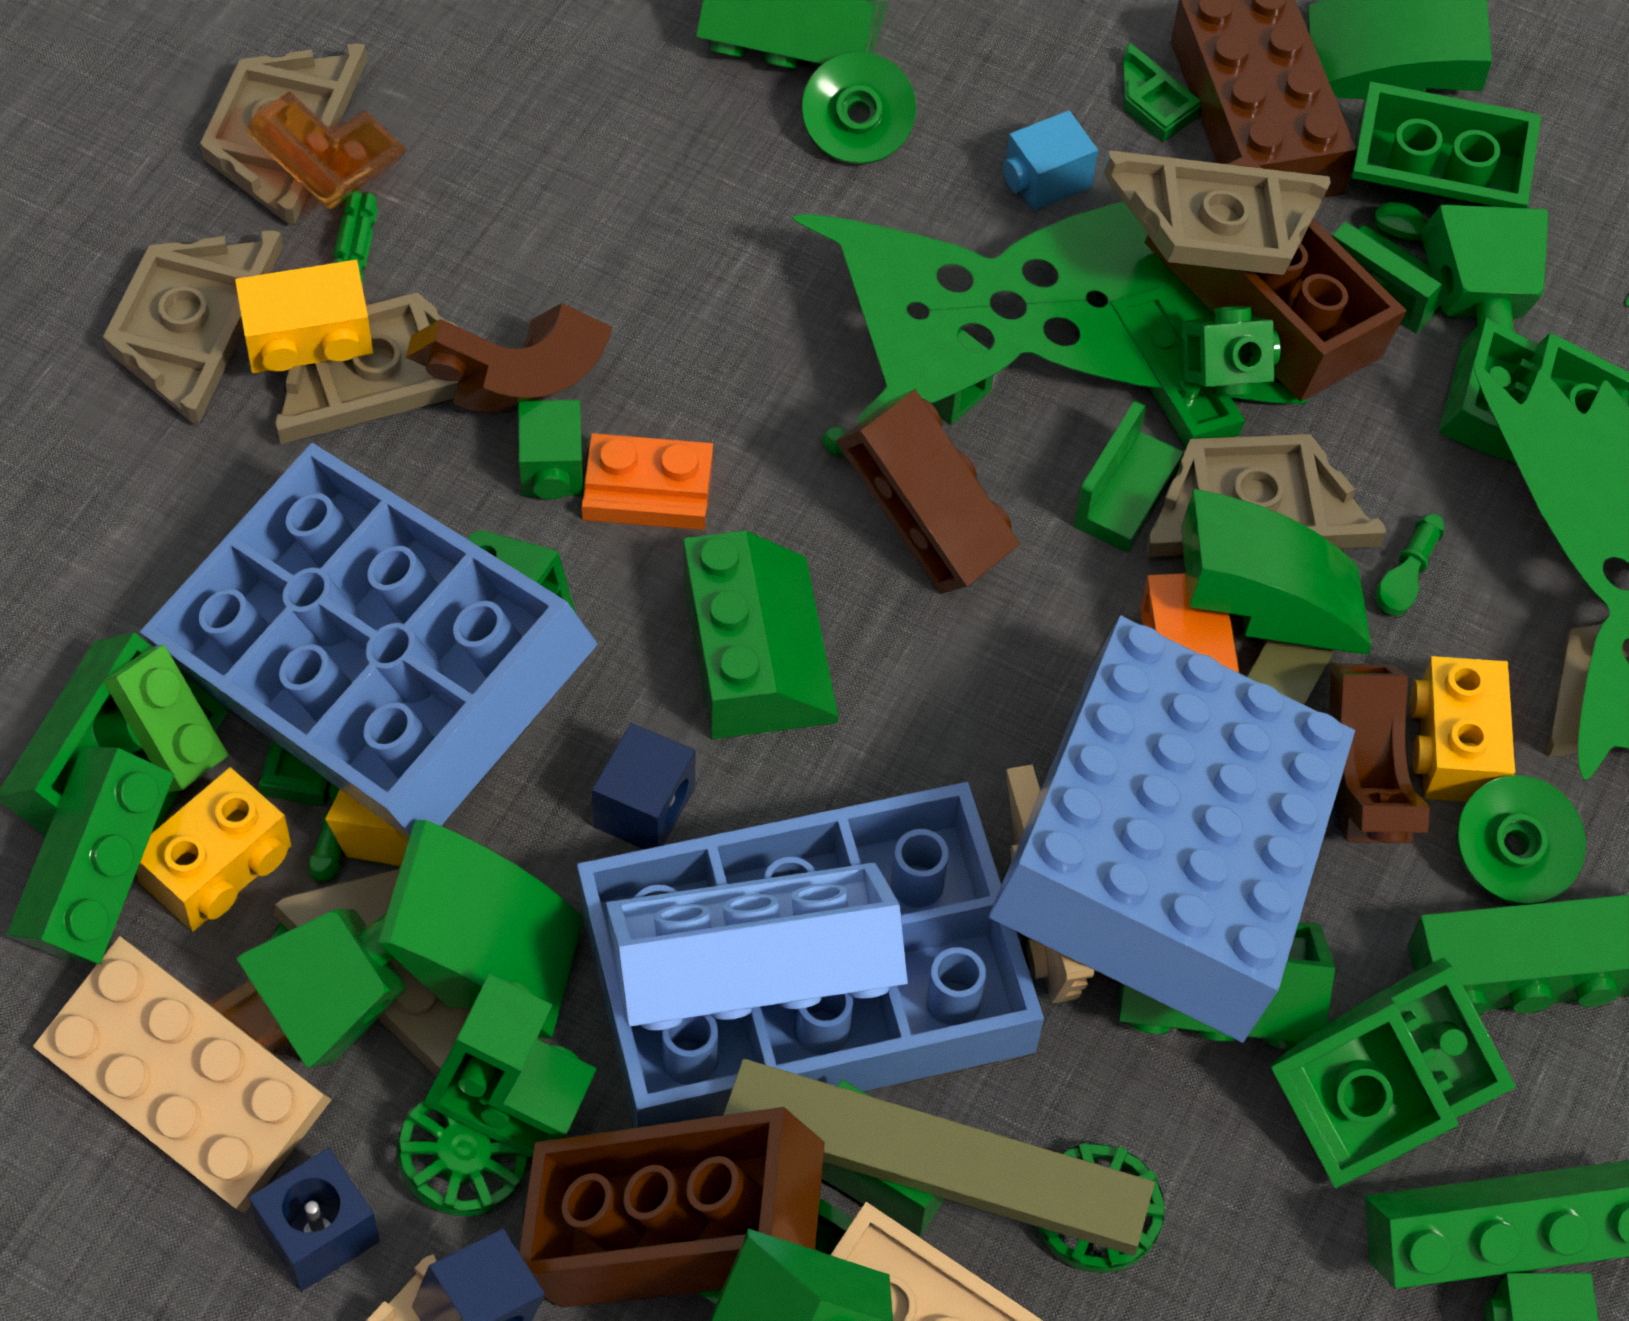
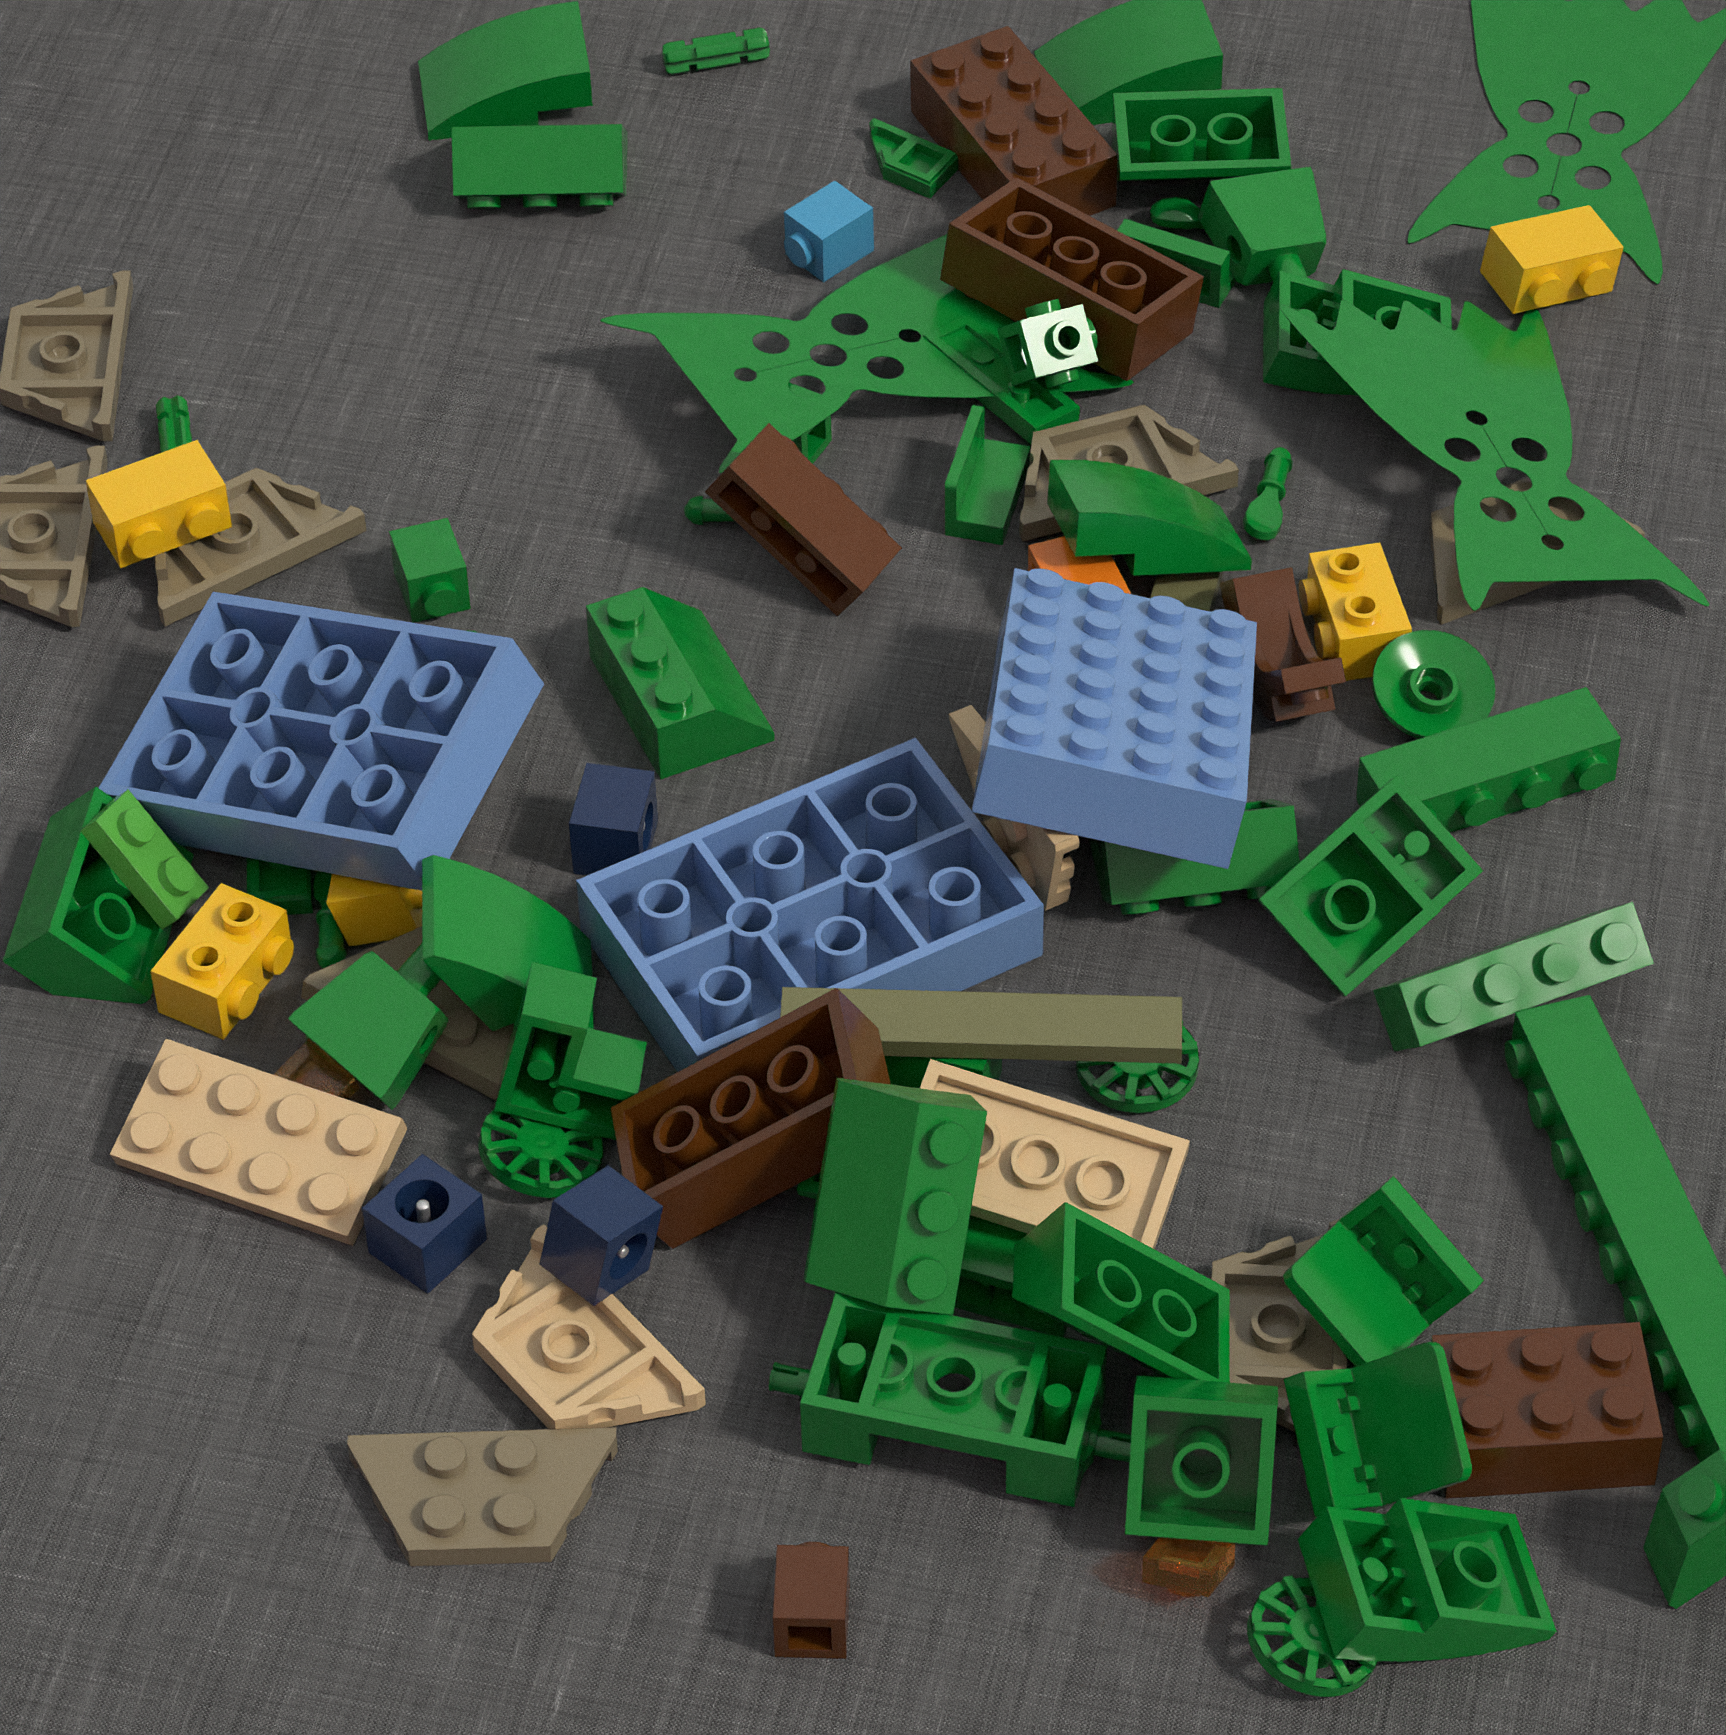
camera: 10 degrees left, 10 degrees down
(90, 854) = (116, 977): green brick -> none
(324, 160) = (130, 372): clear orange brick -> none
(494, 378) = (362, 513): reddish brown arch -> none
(647, 481) = (529, 581): orange plate -> none
(757, 945) = (767, 898): light blue slope -> none
(865, 82) = (636, 202): green dish -> none
(1217, 210) = (1002, 223): dark tan wing -> none

